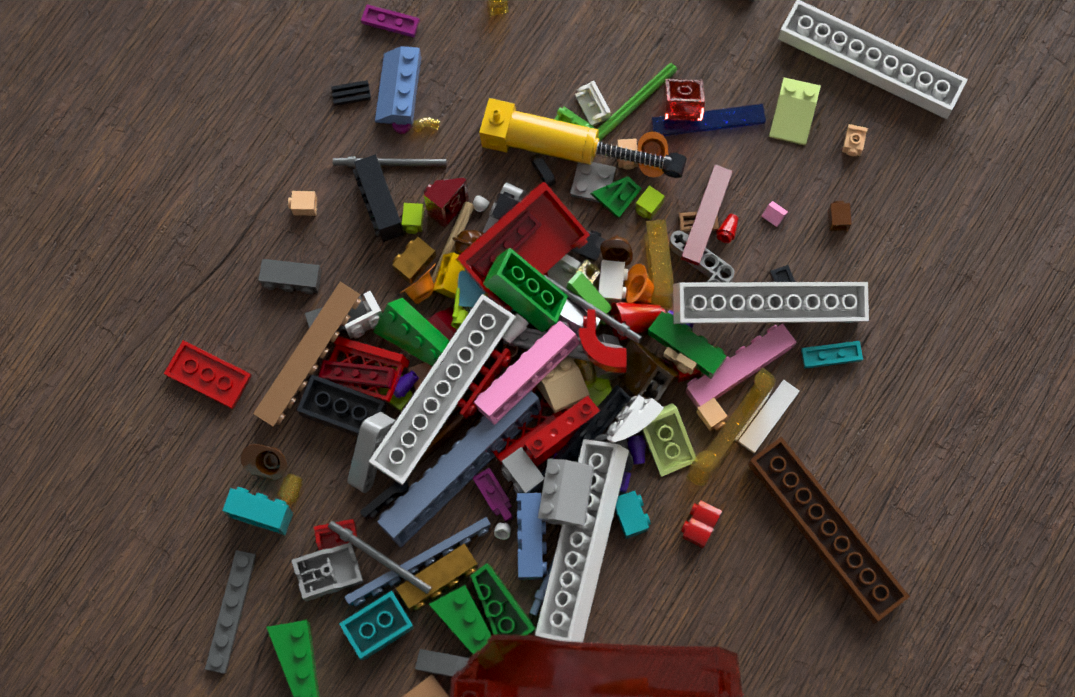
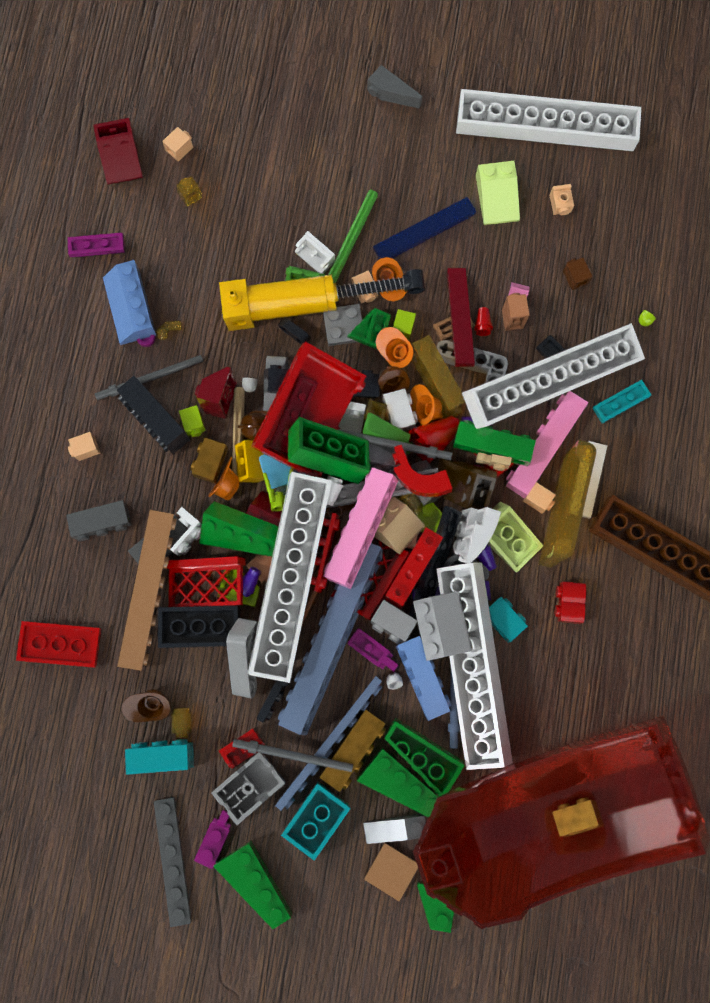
camera: 25 degrees left, 5 degrees up
(276, 608) = (213, 841): none -> magenta hinge
(336, 92) = (87, 318): black tile -> none
(357, 374) = (201, 590): dark red tile -> none
(631, 220) = (394, 347): none -> orange piece
(683, 99) = (397, 218): clear red brick -> none
(761, 230) = (515, 311): none -> nougat brick
(890, 285) = (646, 318): none -> lime hinge

